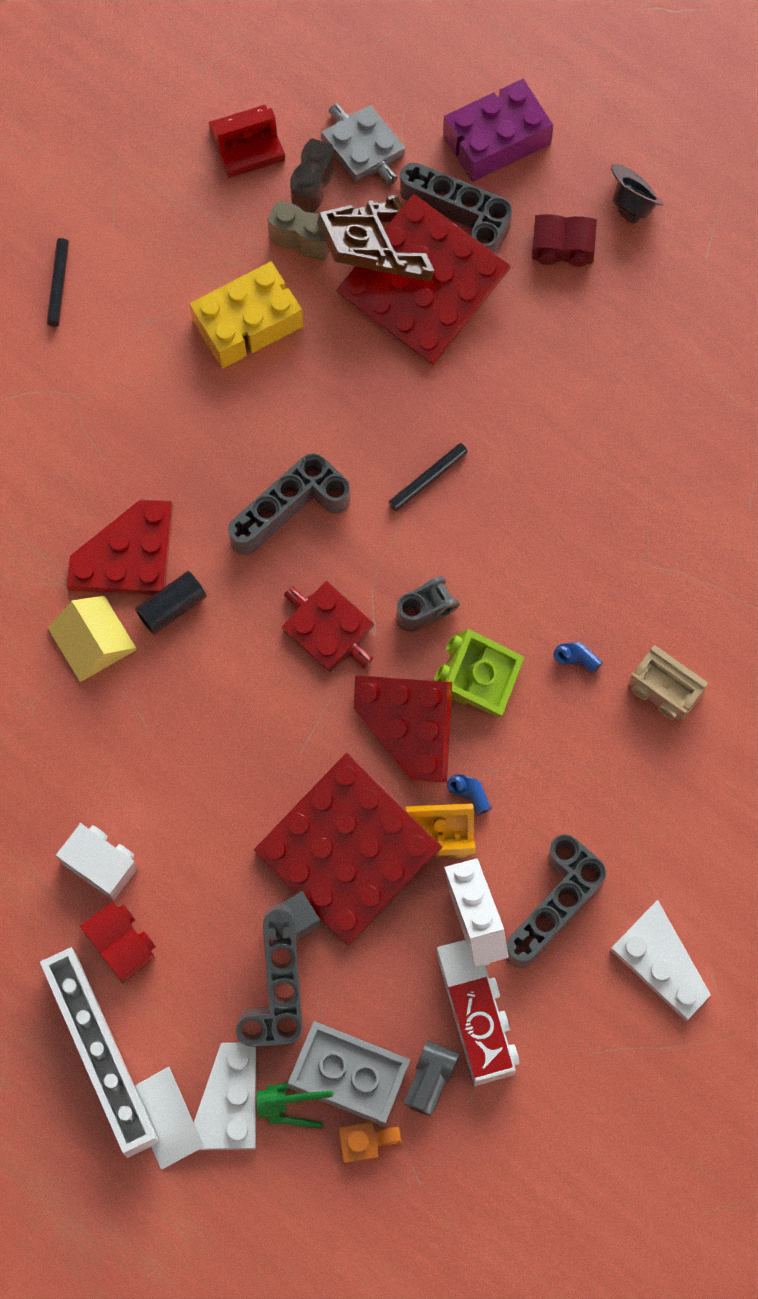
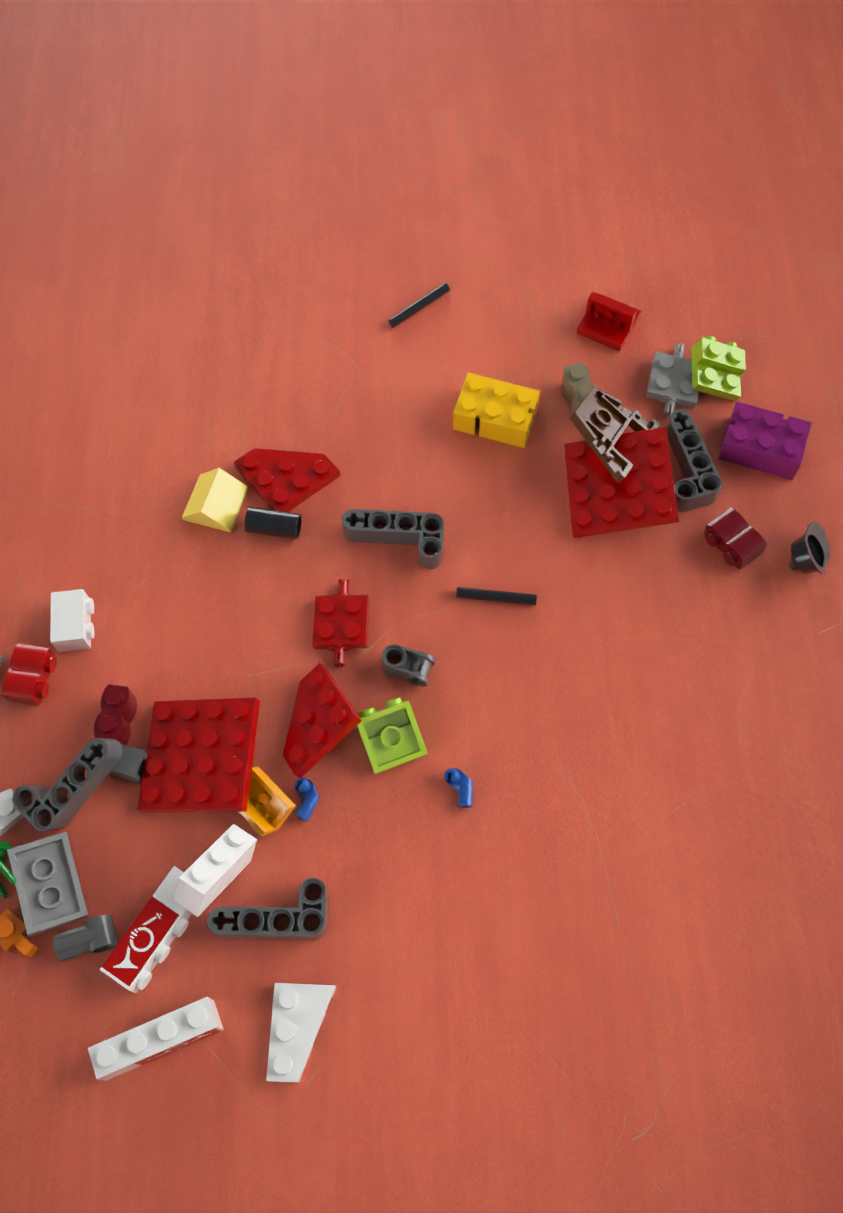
camera: 50 degrees right, 5 degrees down
(233, 889) = (117, 712): none -> dark red brick
(312, 175) = (621, 369): clear smoke brick -> none
(390, 99) = (717, 368): none -> lime plate
(575, 1081) = (155, 1039): none -> white brick
(667, 684) = (494, 861): tan hinge -> none

